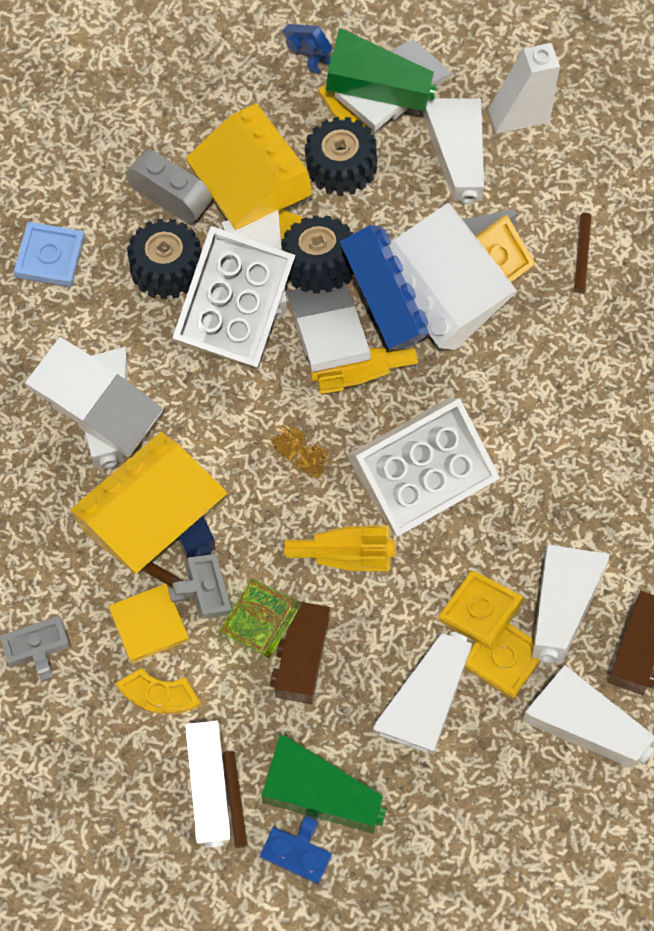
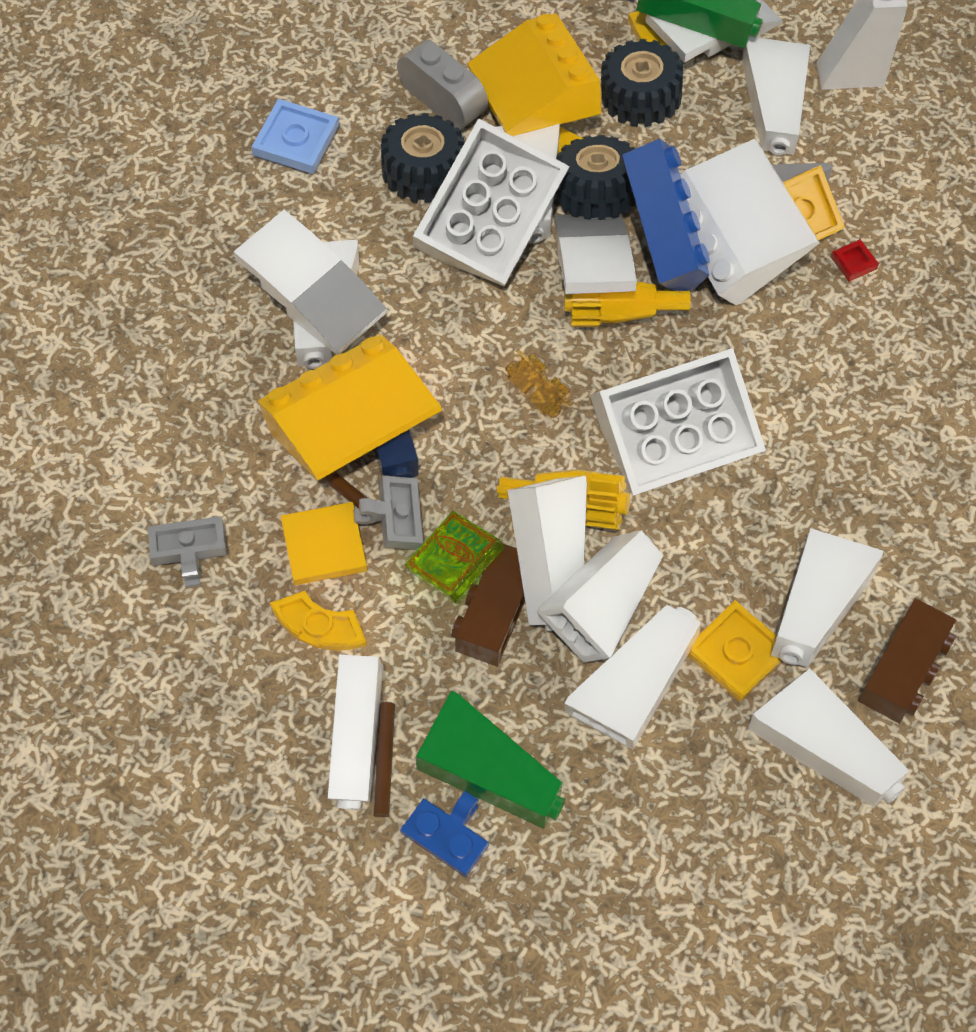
camera: 10 degrees right, 5 degrees down
(339, 599) = (548, 537): none -> white slope
(388, 632) = (602, 596): none -> white slope
(481, 609) = (719, 590): yellow tile -> none
(548, 292) = (854, 260): none -> red tile
(582, 253) = (901, 225): reddish brown bar -> none

